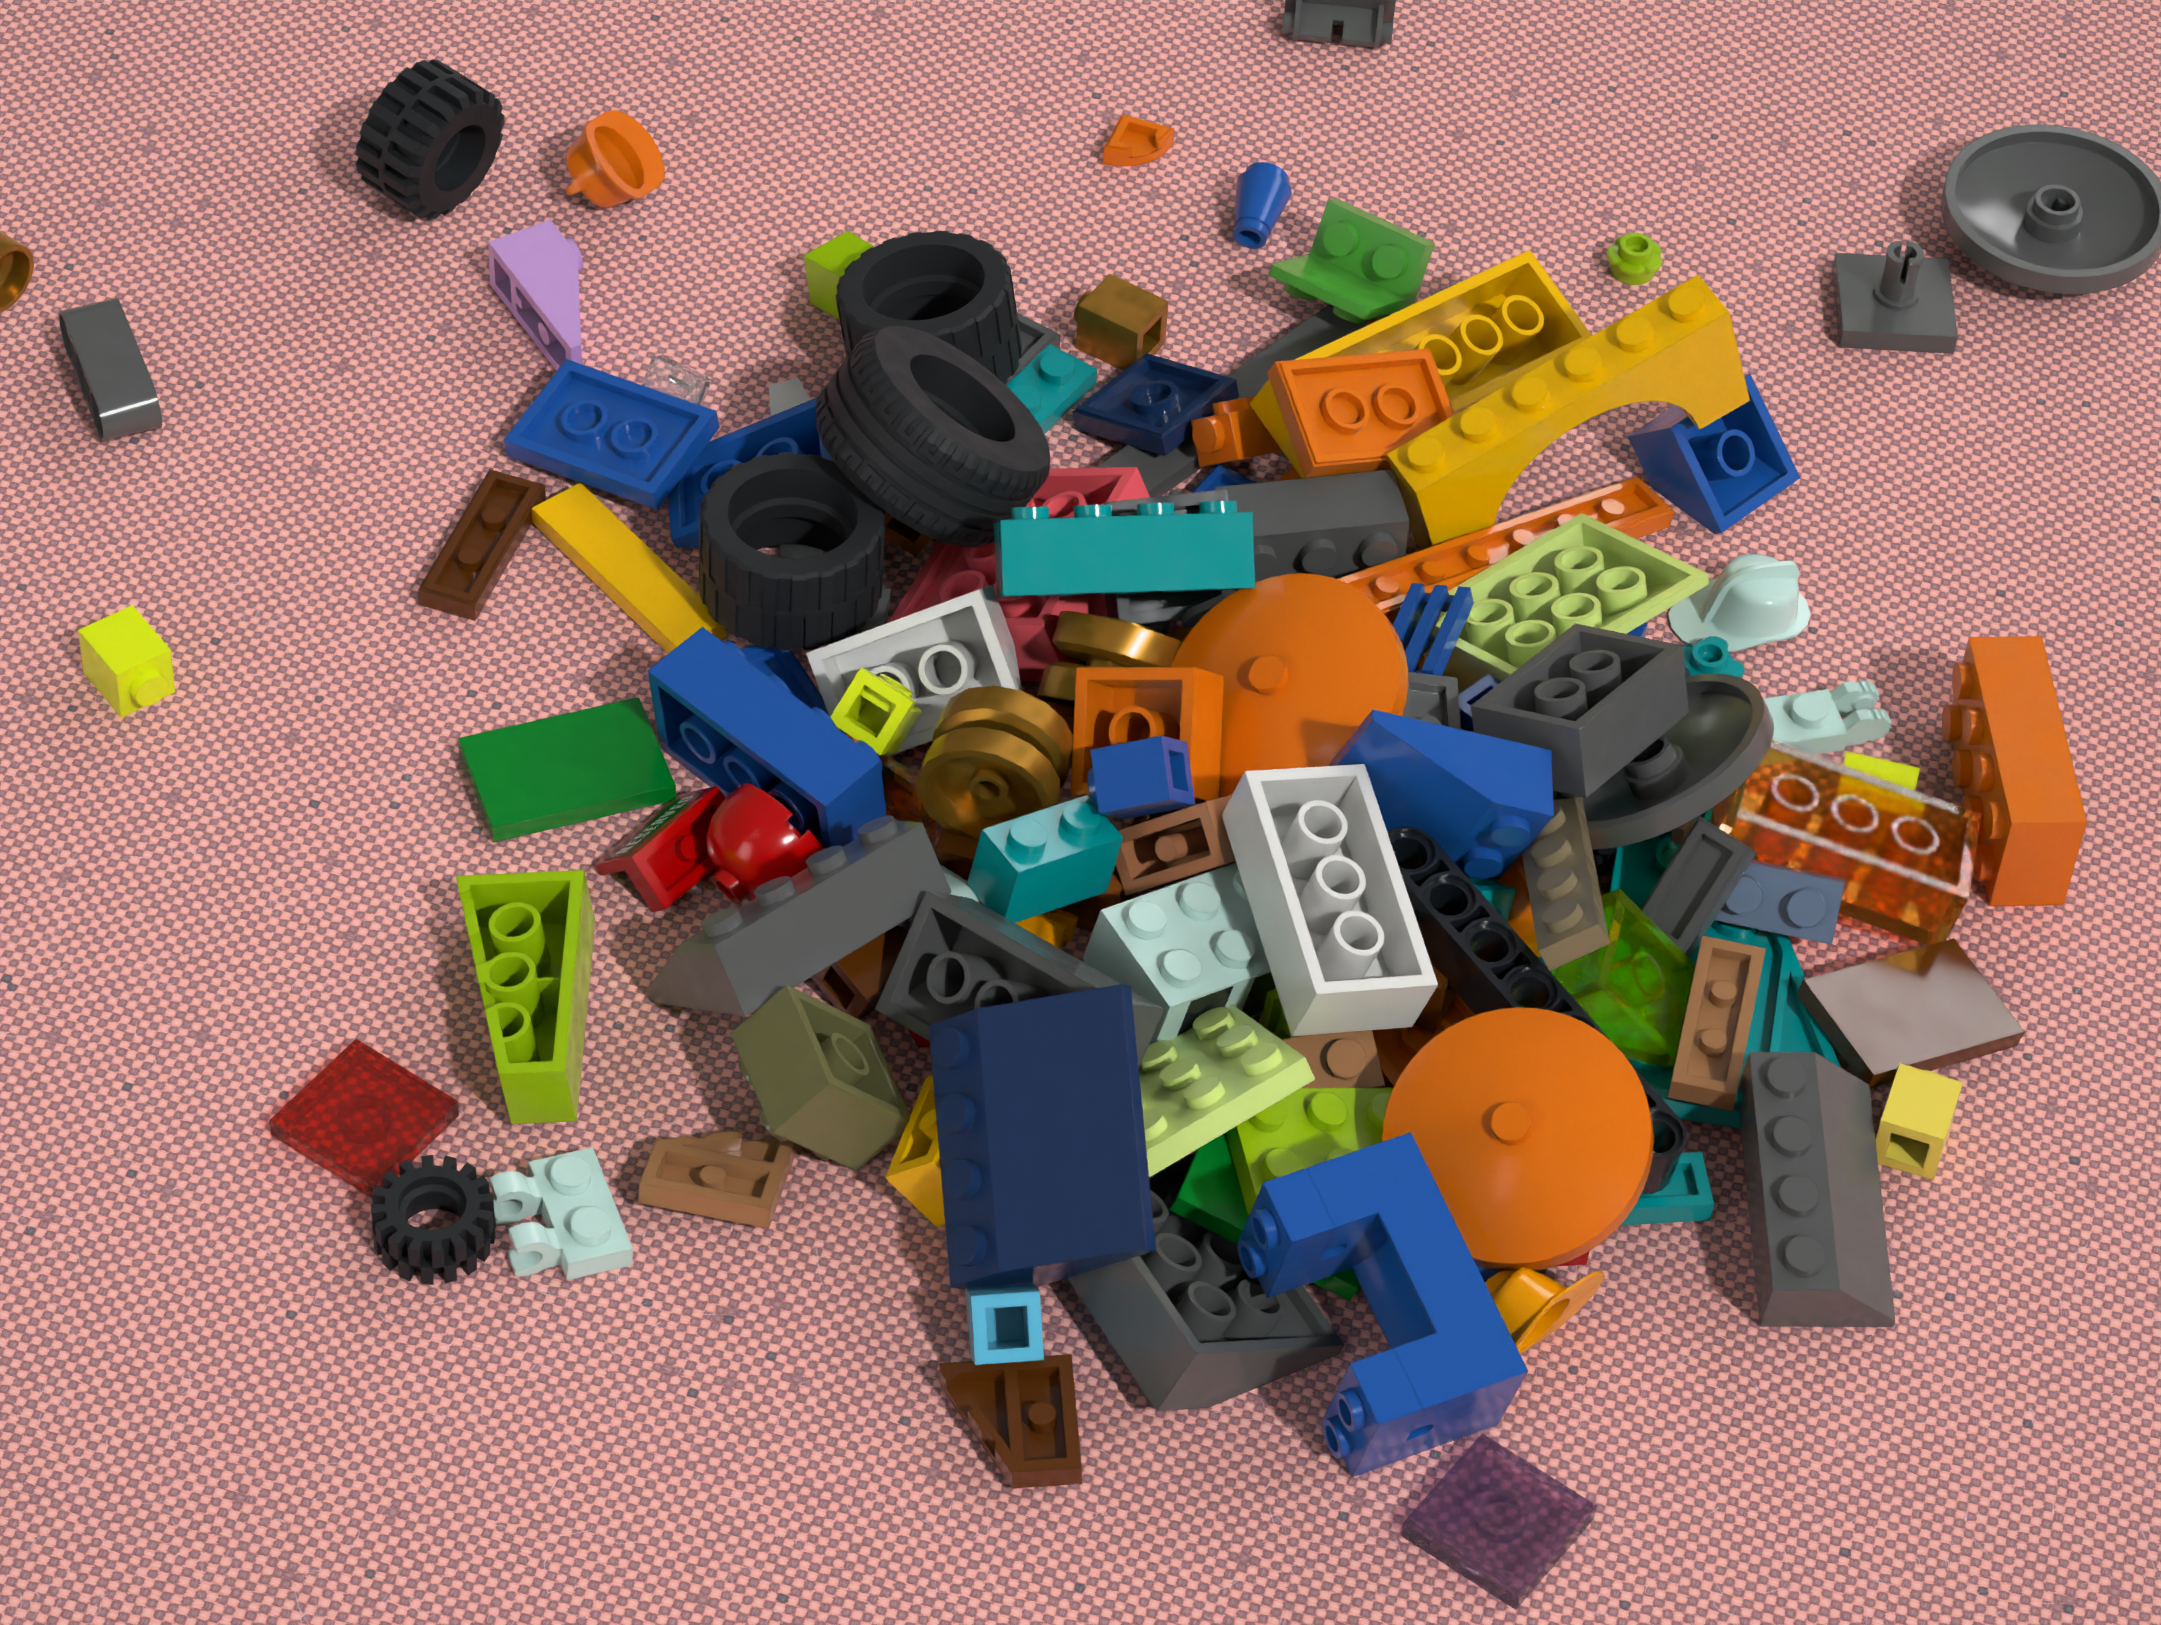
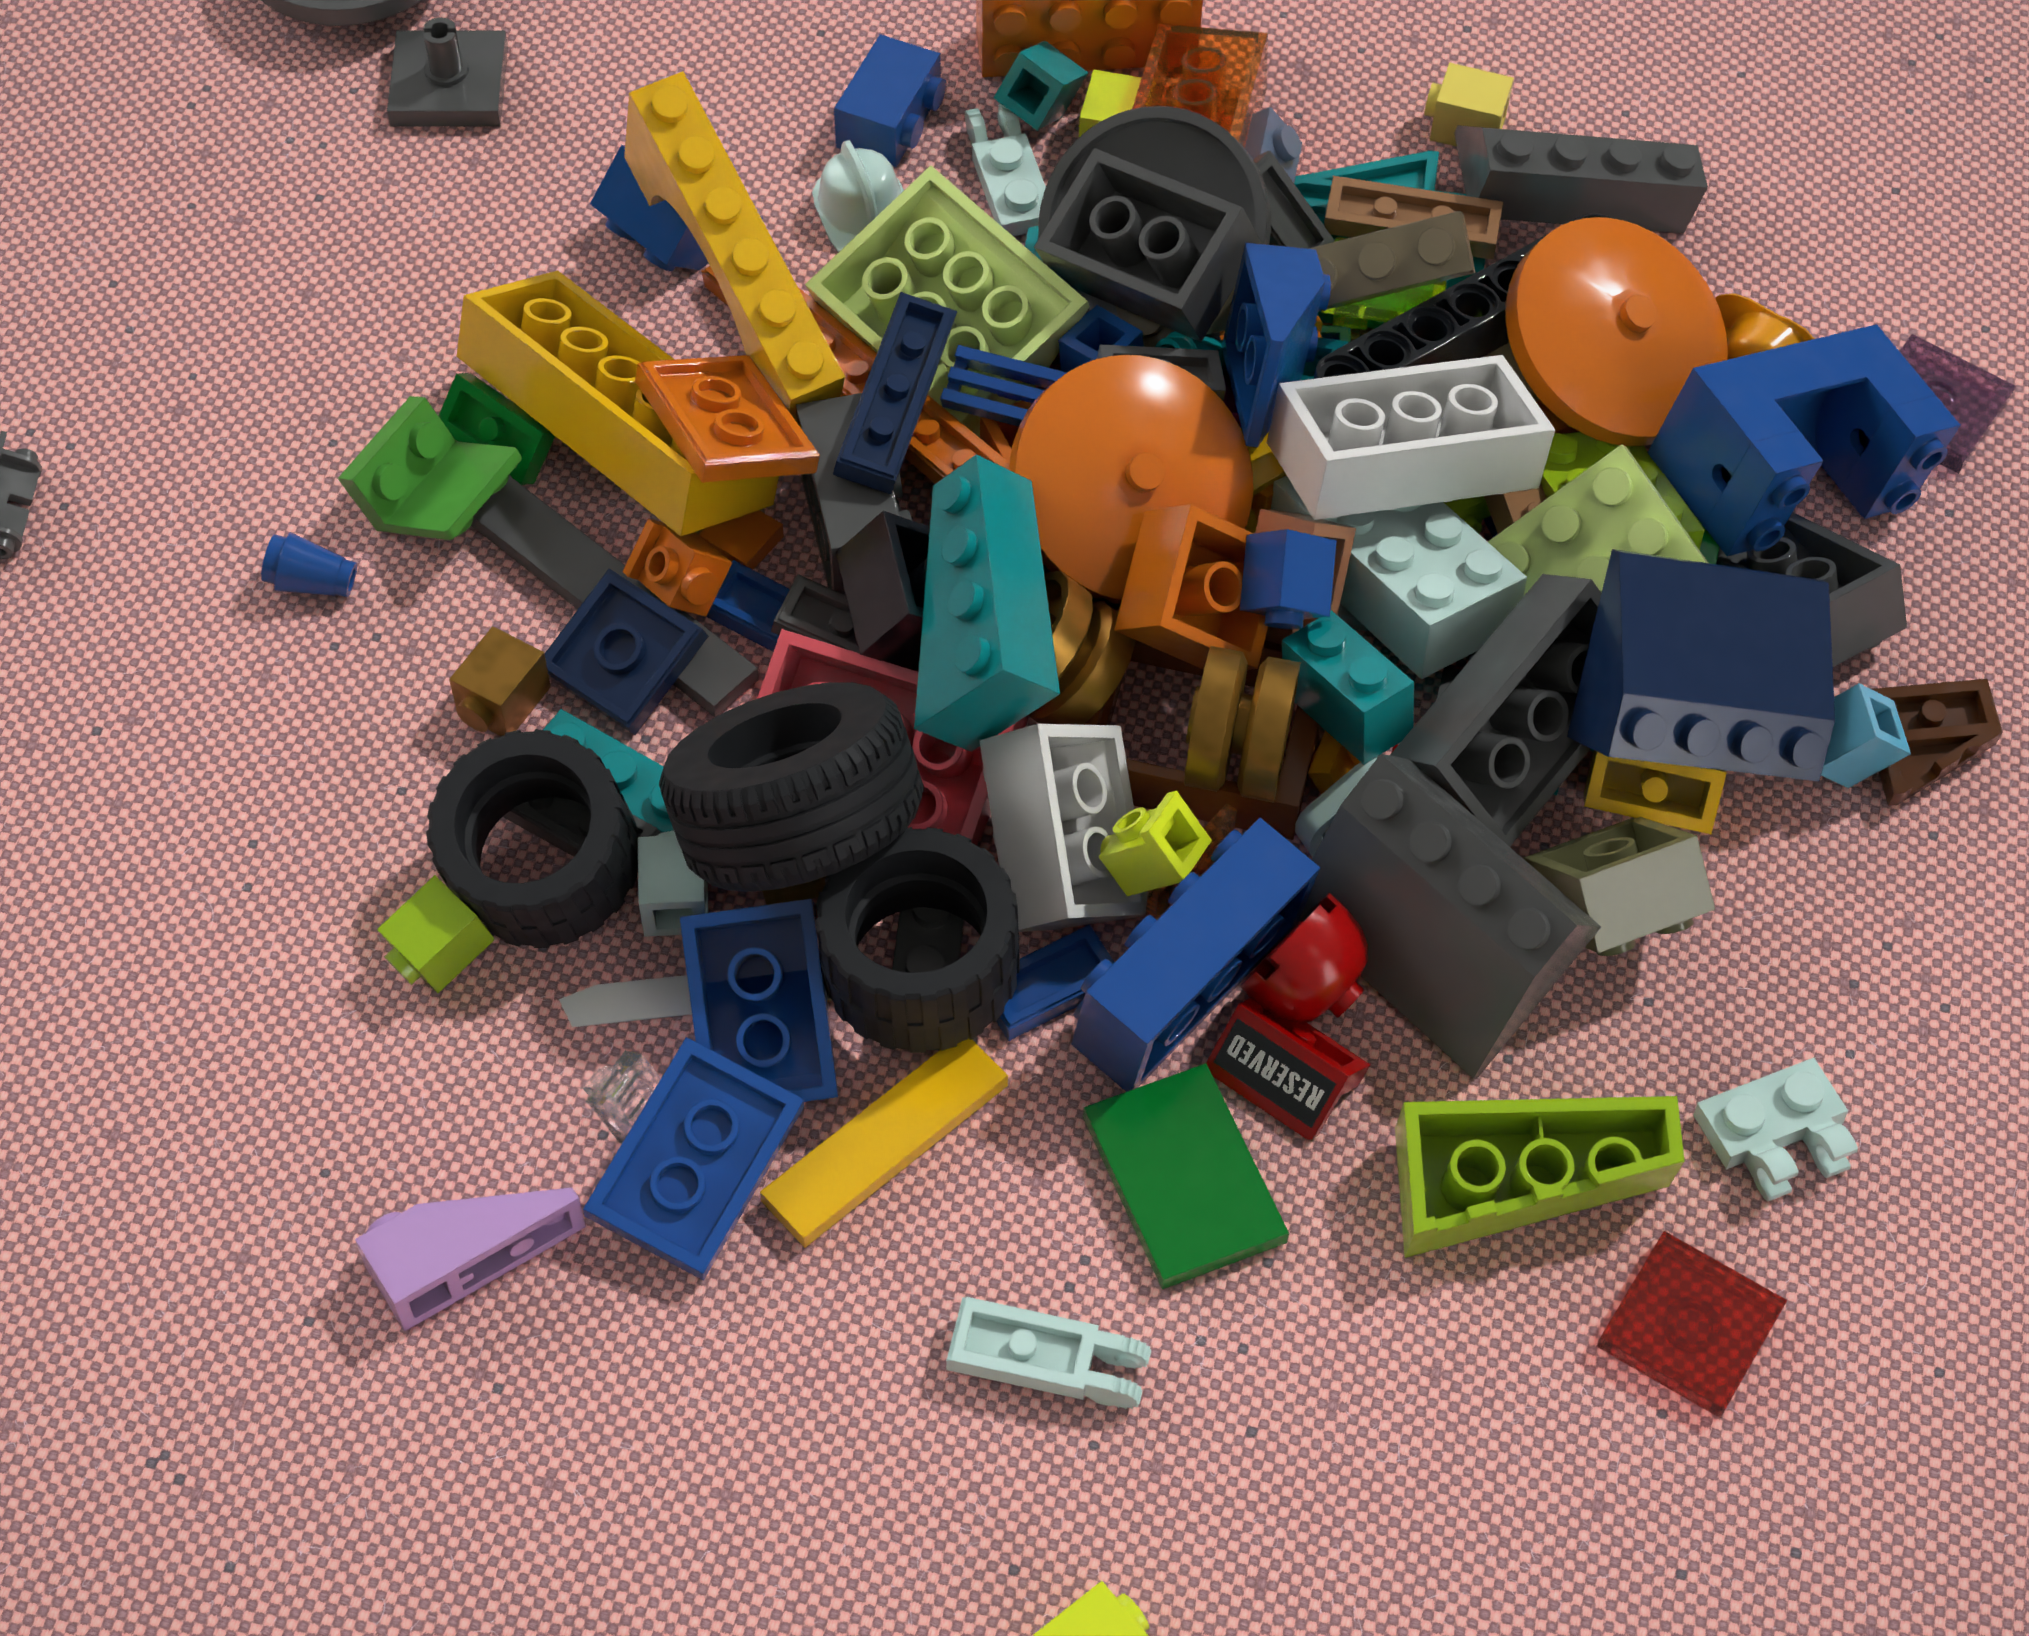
camera: 90 degrees left, 10 degrees up
(400, 655) = (1043, 1352): none -> light aqua hinge
(429, 139) = (219, 1379): black tyre -> none
(438, 1249) = (1830, 1205): black tyre -> none
(481, 545) = (850, 1292): reddish brown tile -> none
(614, 161) = (231, 1197): orange piece -> none
(718, 1176) = (1706, 987): medium nougat wing -> none
(1137, 142) = (186, 687): orange tile -> none
(1406, 537) = (895, 393): none -> dark blue tile
(1634, 258) = (386, 266): lime plate -> none
(1881, 620) = (890, 98): none -> blue brick
(1901, 727) = (1040, 85): none -> teal brick
(1910, 1010) = (1356, 105): tile -> none

